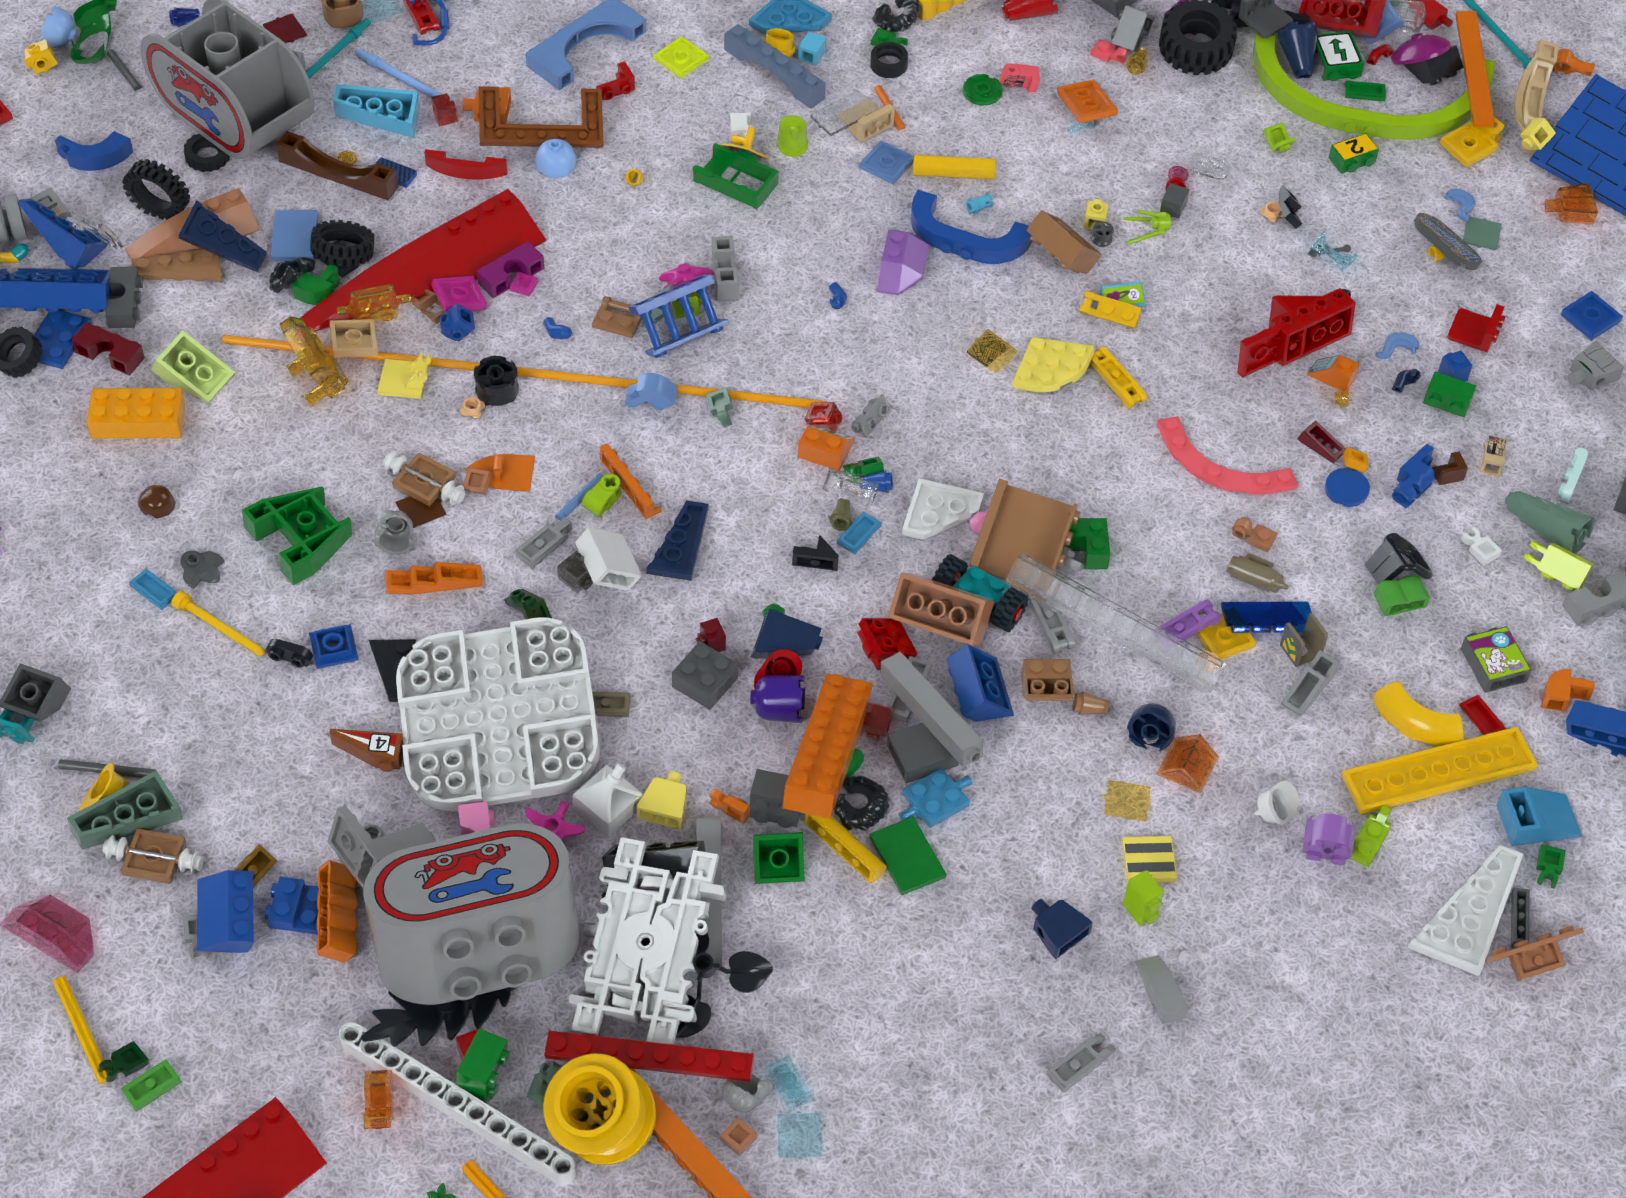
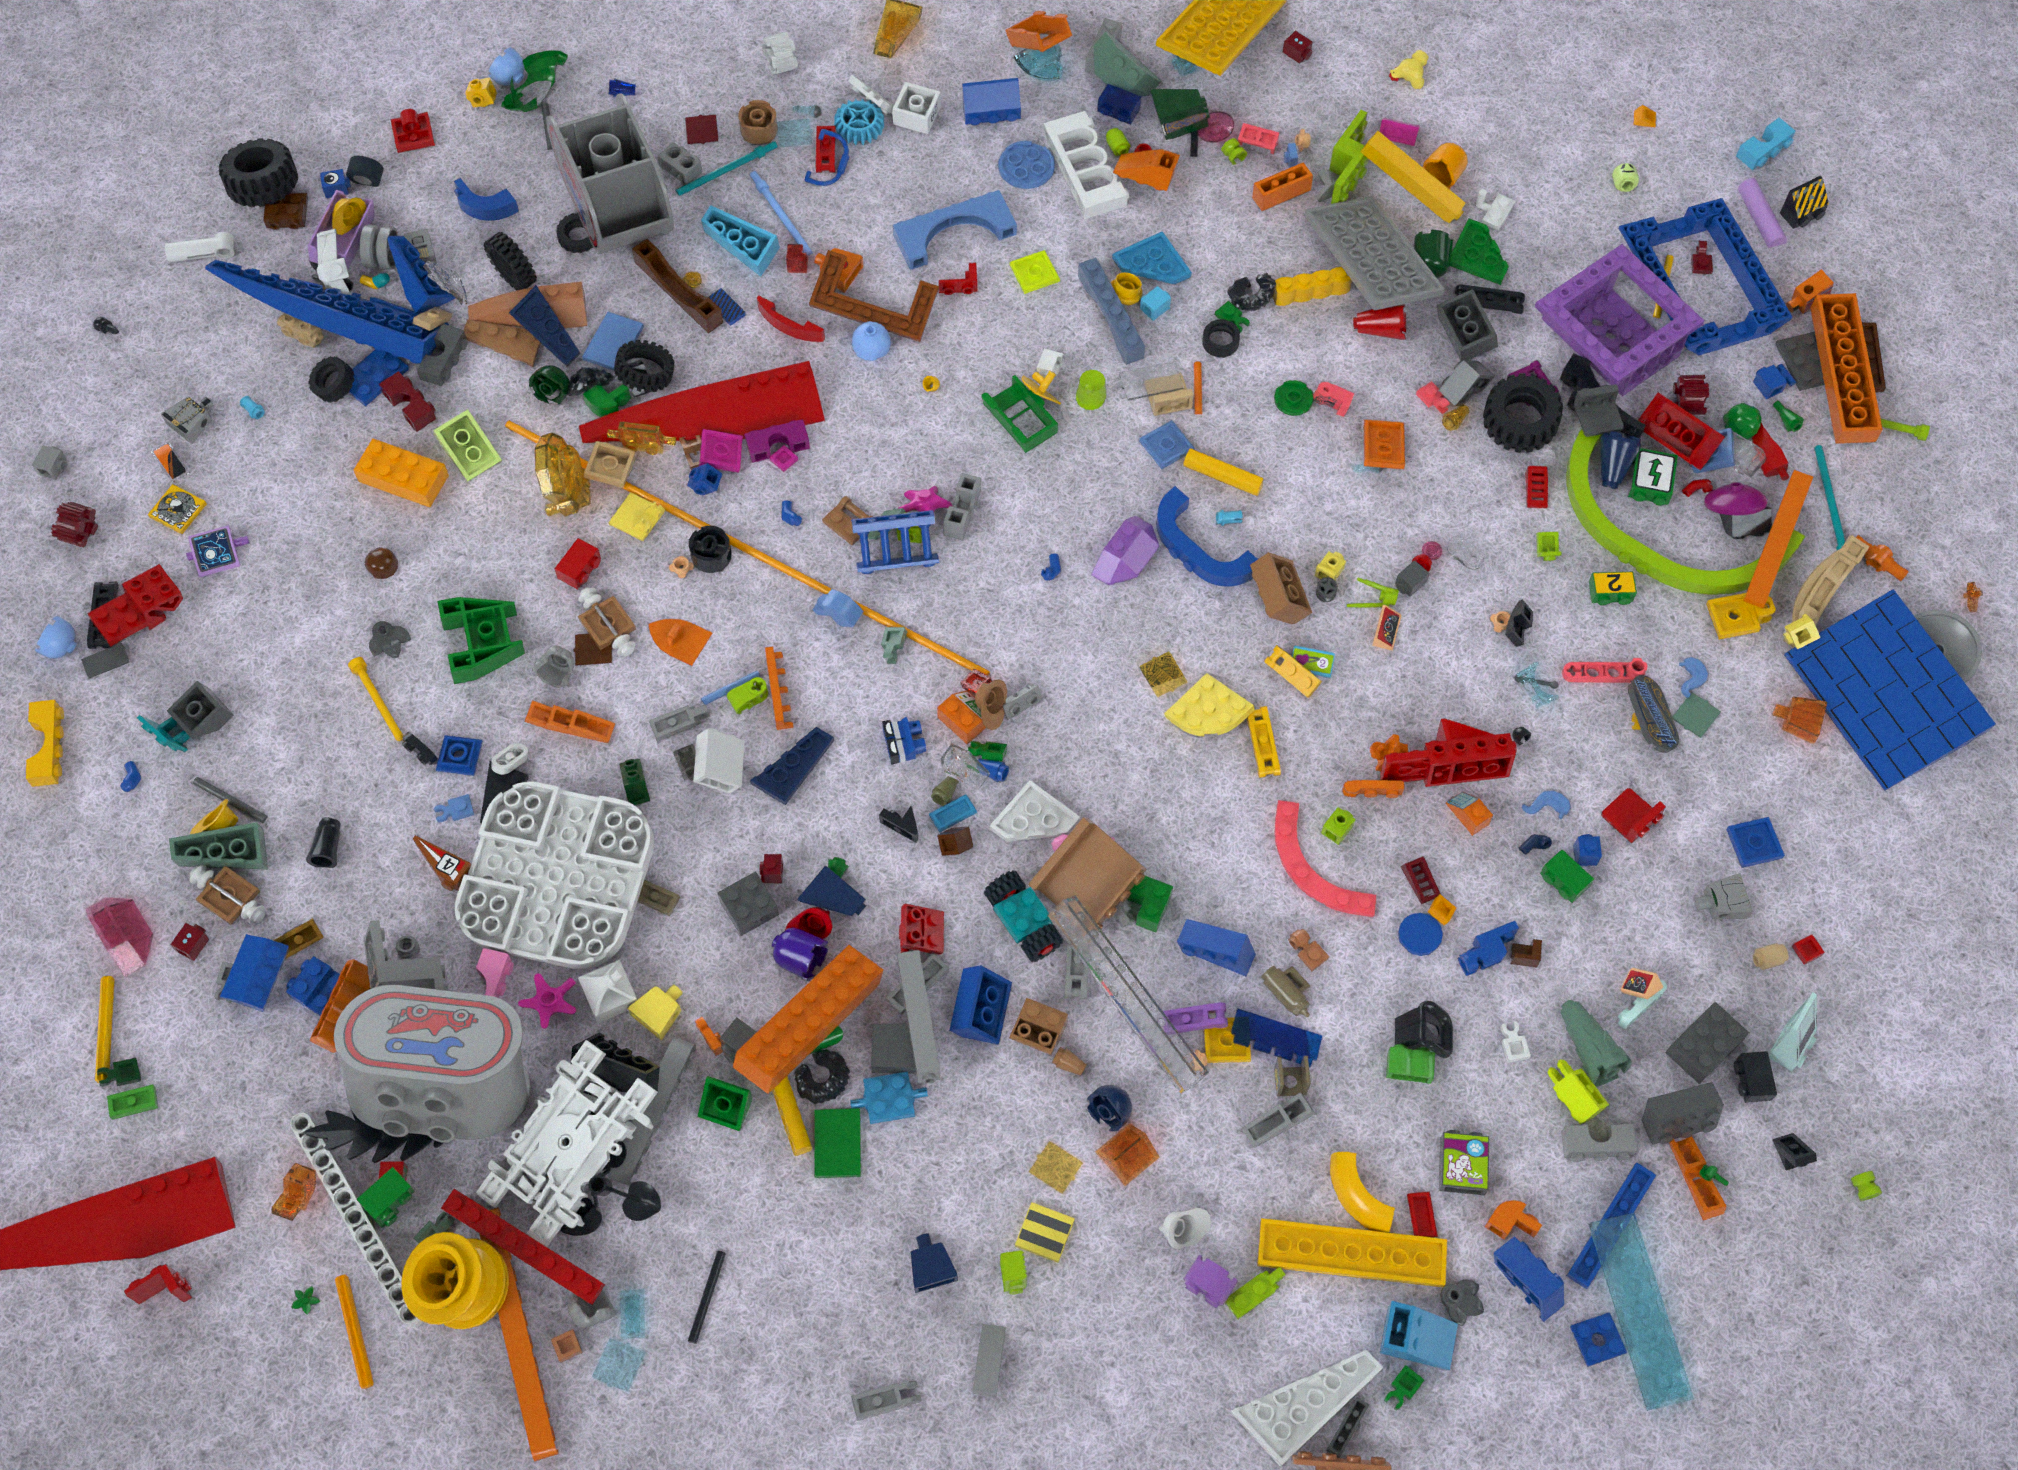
camera: 25 degrees right, 10 degrees up
(95, 267) = (432, 318): none -> tan plate
(135, 912) = (190, 941): none -> dark red brick
(153, 589) = (341, 645): dark azure tile -> none
(235, 772) = (325, 844): none -> black plant
(249, 286) = (547, 381): none -> dark green cylinder
(357, 693) = (458, 808): none -> medium blue plate
(367, 435) = (578, 563): none -> red brick
(390, 629) = (509, 758): none -> white plate
(477, 481) = (649, 641): nougat plate -> none
(775, 485) = (900, 742): none -> blue hips
(846, 421) = (990, 700): none -> medium nougat piece
(854, 1040) = (706, 1297): none -> black bar
(876, 554) = (955, 841): none -> reddish brown panel
(878, 720) = (873, 1005): clear red brick -> none
(941, 609) = (977, 921): nougat brick -> none
(1173, 249) = (1387, 628): none -> slope
(1173, 556) = (1217, 945): none -> blue wedge
(1224, 422) = (1338, 825): none -> lime brick
(1231, 346) = (1379, 750): none -> orange hips
(1236, 84) = (1540, 475): none -> red slope
(1238, 380) = (1371, 788): none -> orange hinge
(1342, 398) = (1464, 840): clear yellow plate -> none
(1365, 91) = (1662, 522): green tile -> none
(1407, 213) = (1602, 669): none -> coral beam
(1494, 454) = (1577, 954): tan leg -> none
(1557, 774) = (1465, 1302): none -> dark grey plate
(1564, 456) = (1641, 983): none -> slope

